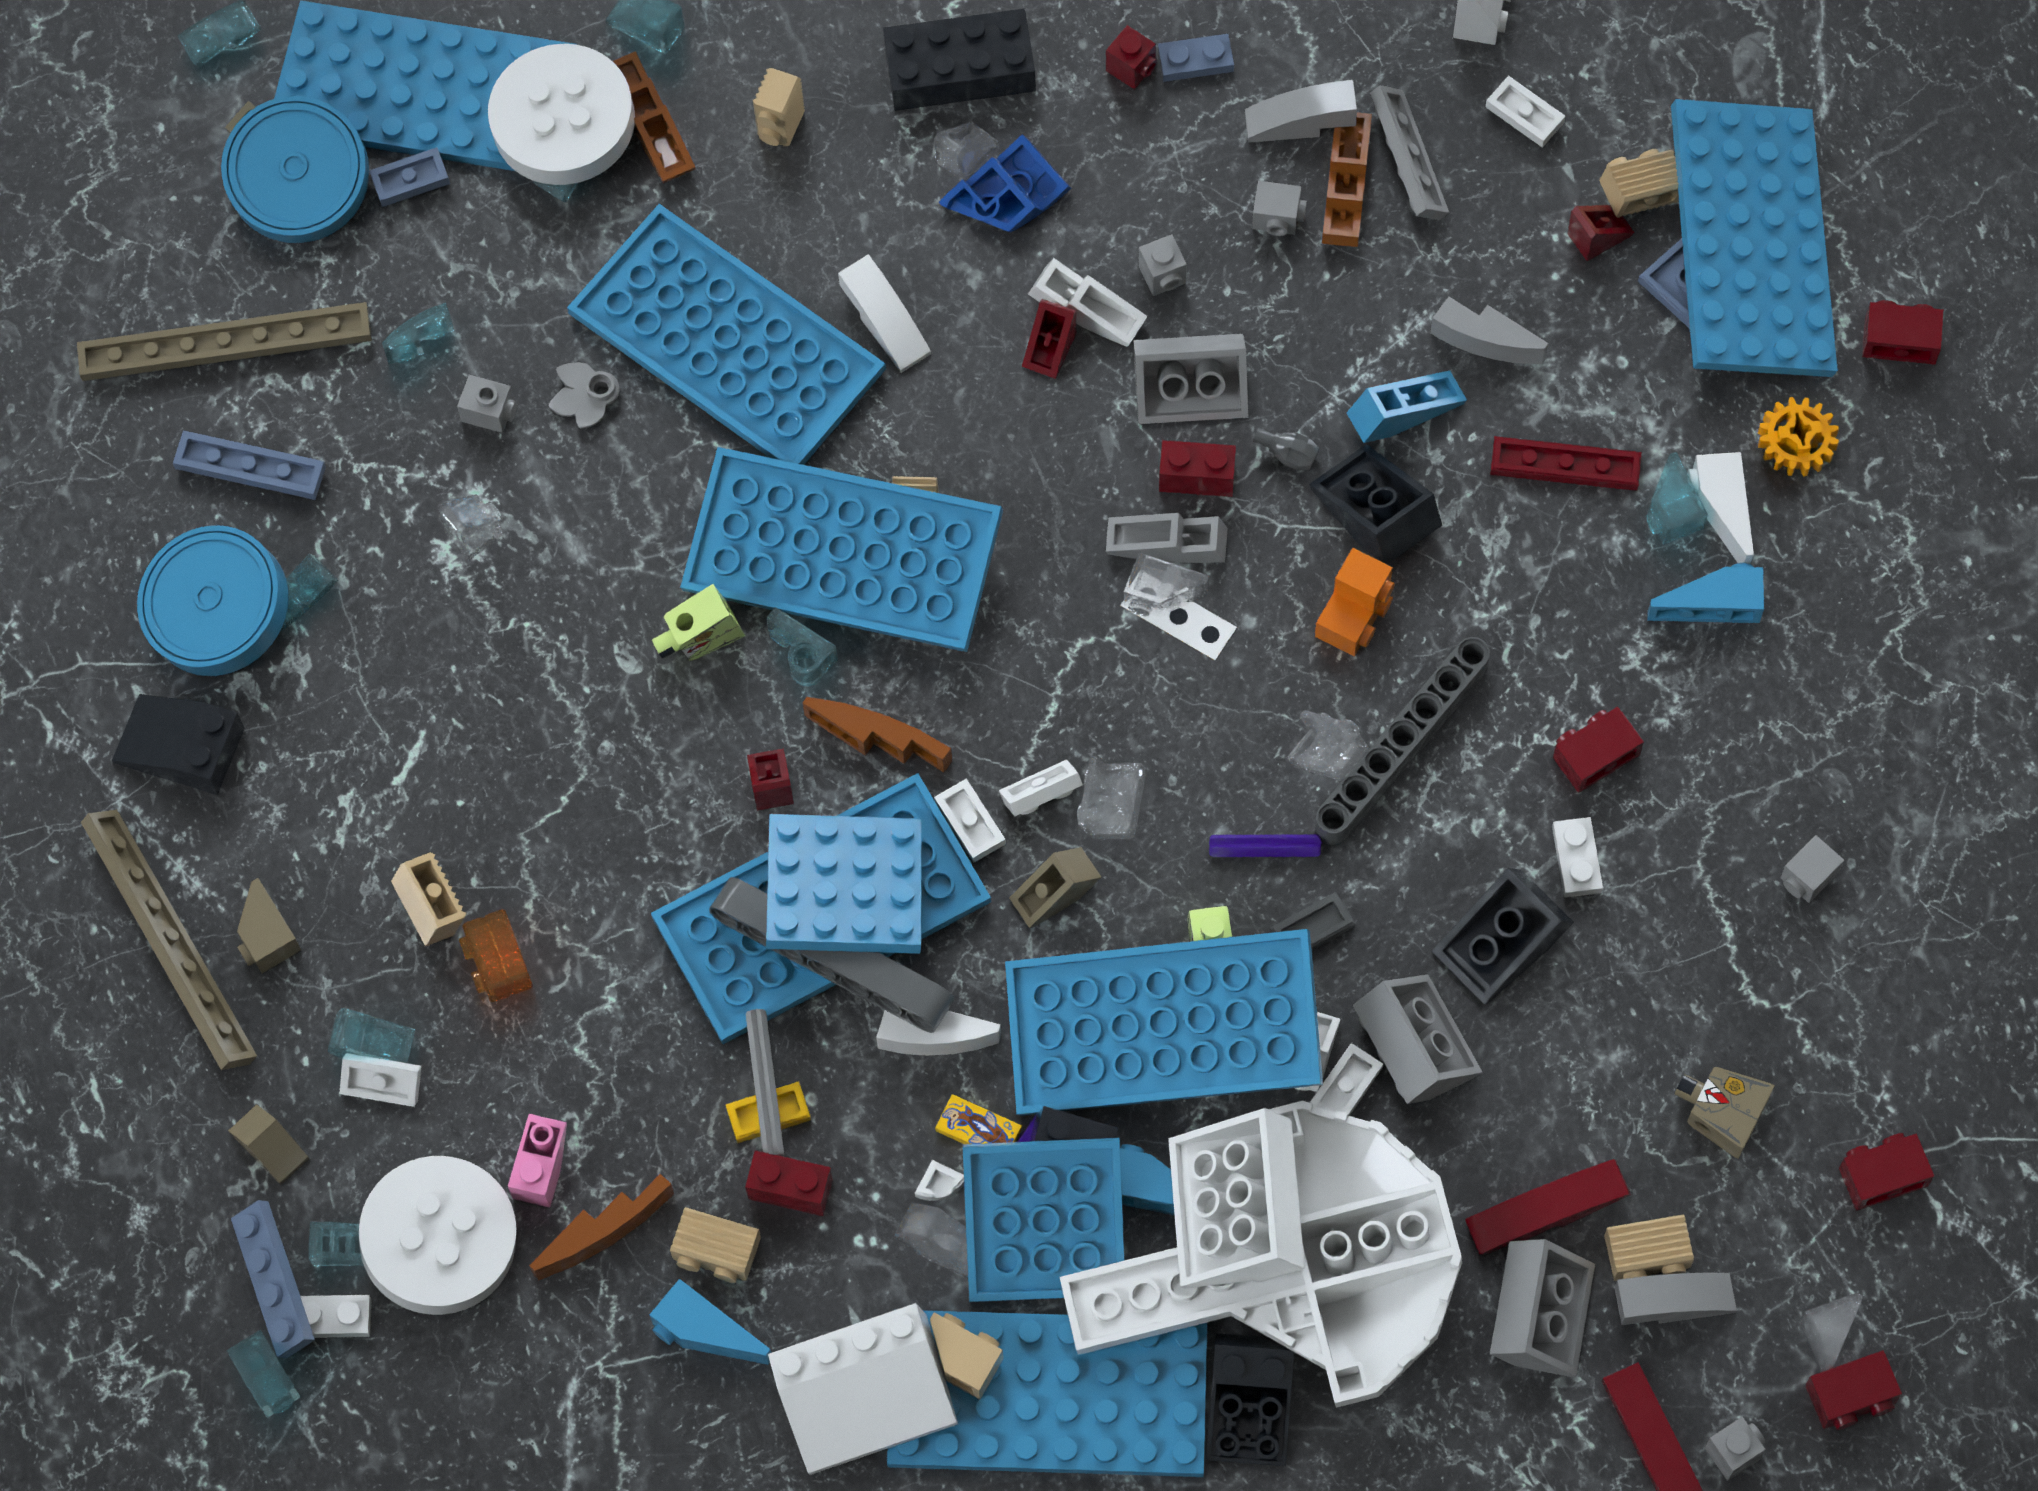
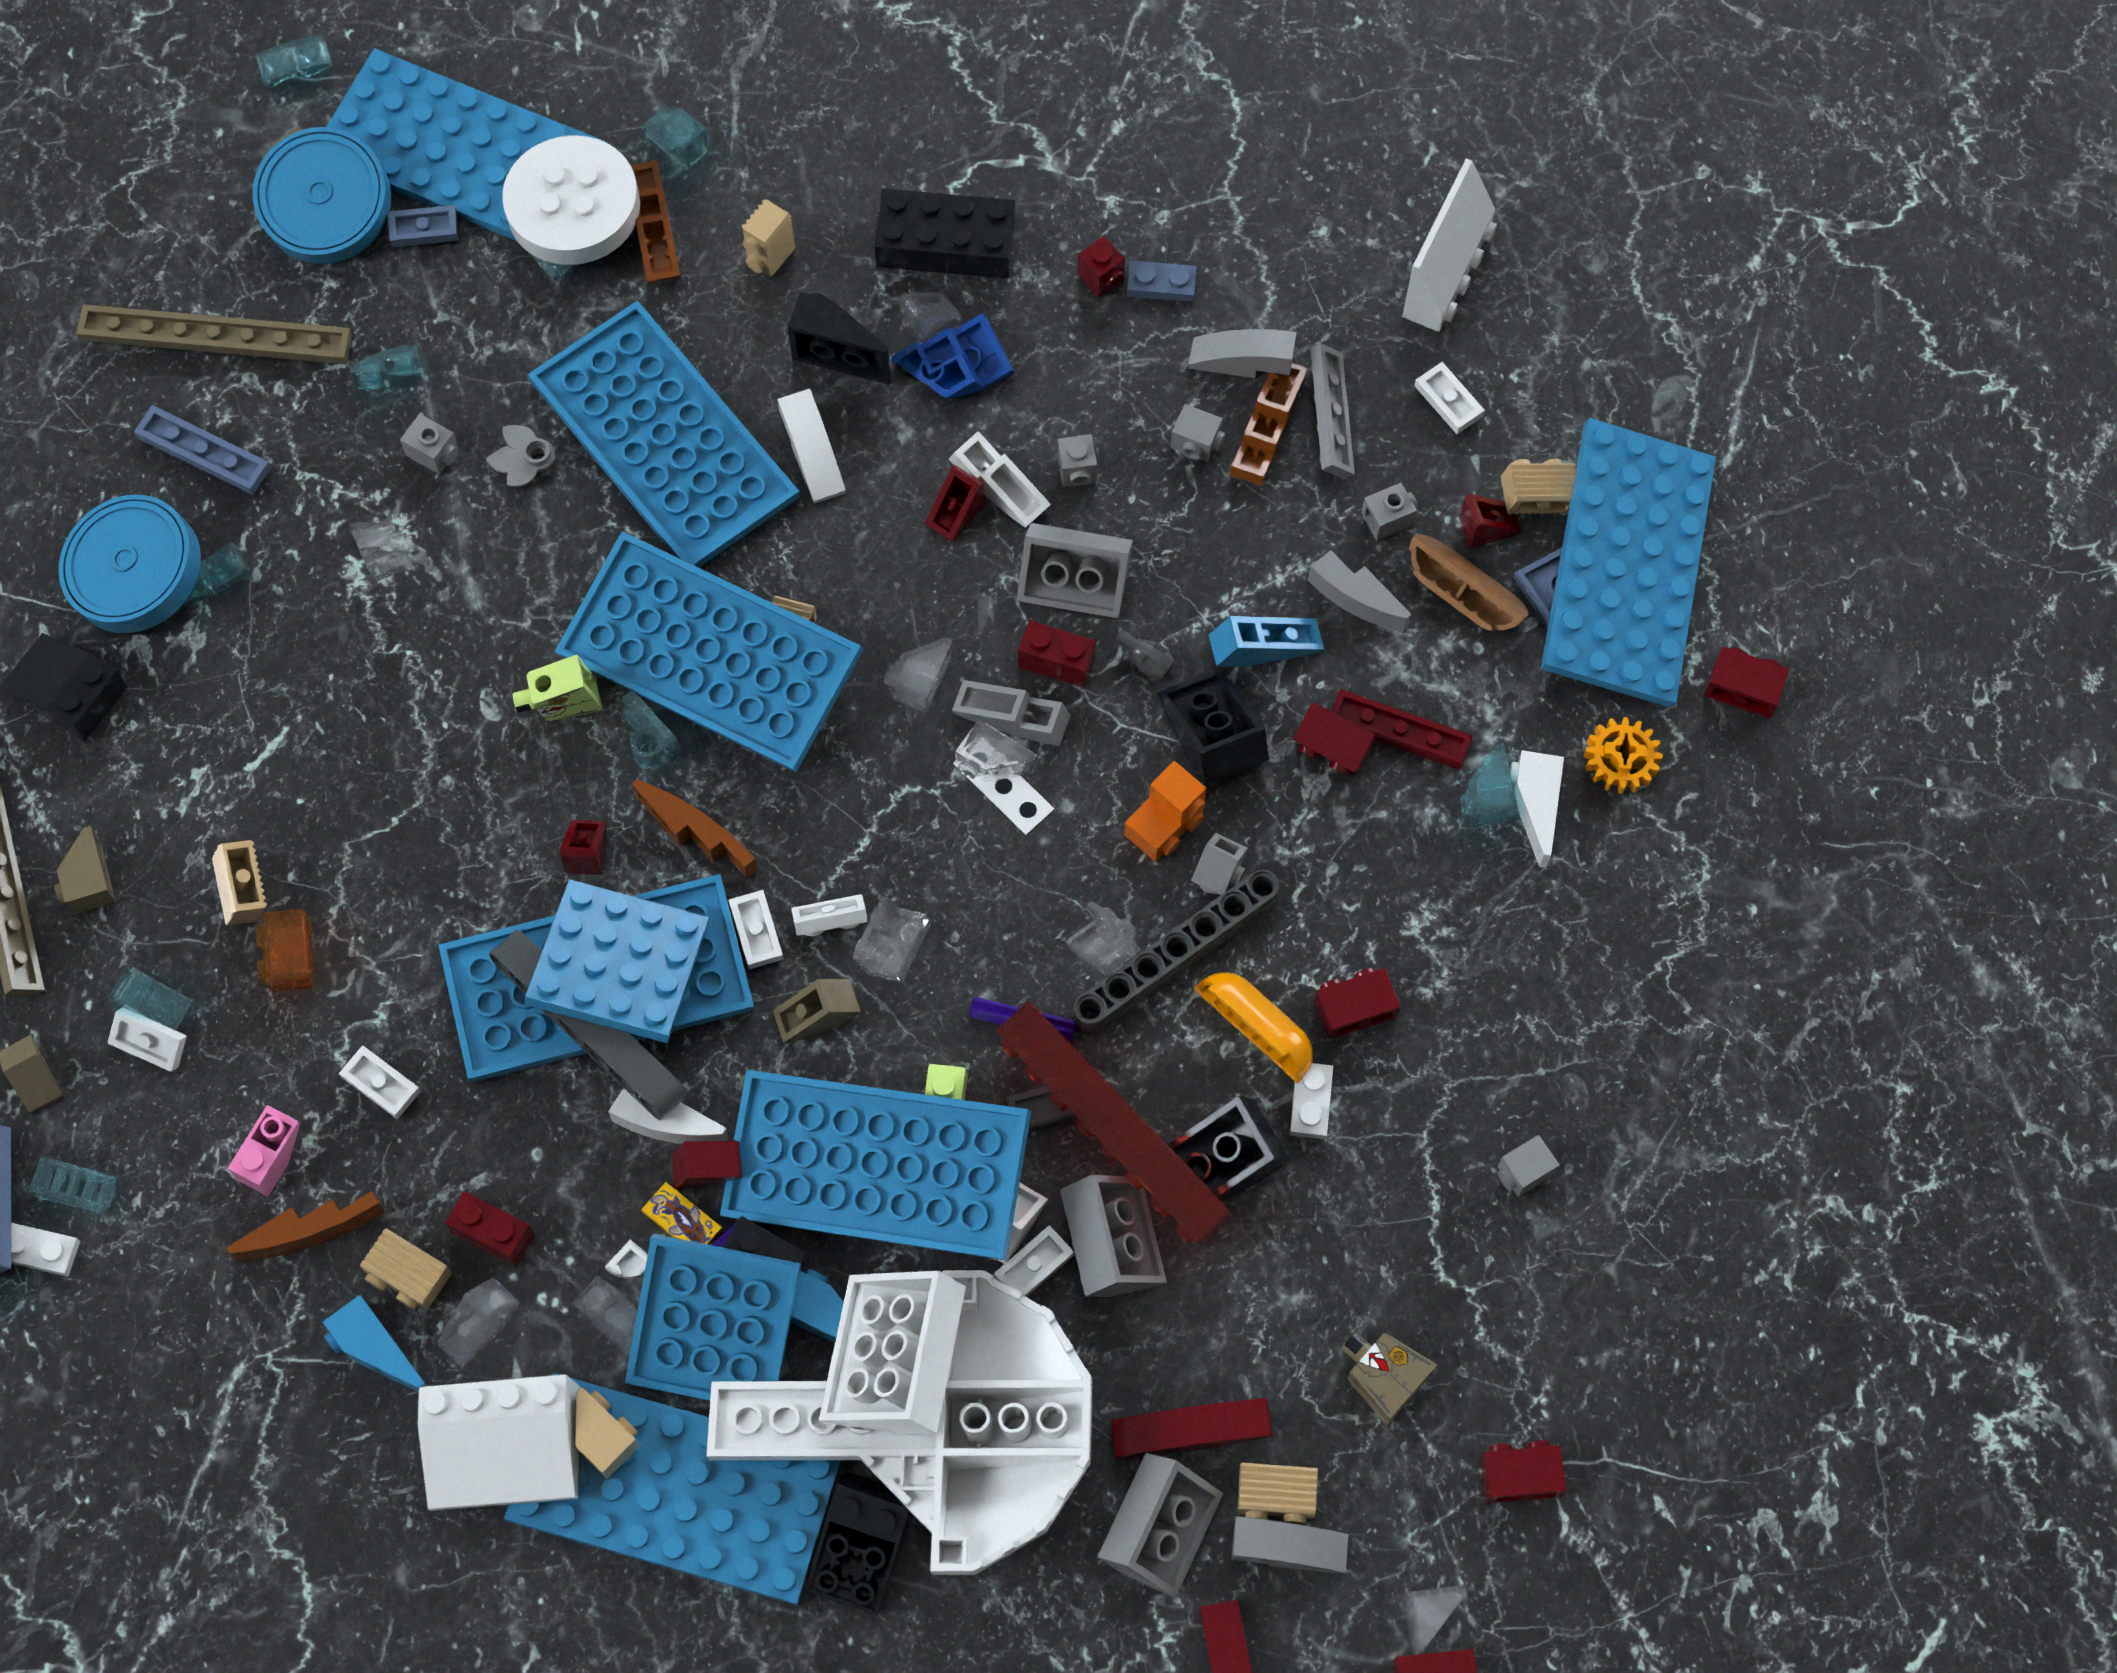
camera: 10 degrees right, 0 degrees up
(437, 1235) = (153, 1197): white brick -> none
(631, 1065) = (379, 1082): none -> white plate
(745, 1118) = (492, 1156): yellow tile -> none
(764, 1082) = (494, 1129): light grey axle -> none
(802, 1278) = (477, 1321): none -> clear slope
(879, 197) = (832, 339): none -> black slope
(988, 1065) = (705, 1163): none -> dark red slope
(1062, 522) = (919, 674): none -> clear slope
(1389, 925) = (1115, 1123): none -> clear red brick
(1423, 644) = (1220, 865): none -> light grey brick
(1496, 242) = (1389, 511): none -> light grey brick
(1503, 488) = (1335, 739): none -> dark red brick
(1504, 791) = (1259, 1021): none -> light orange brick
(1593, 301) = (1465, 585): none -> medium nougat brick
(1722, 596) = (1509, 887): dark azure slope -> none

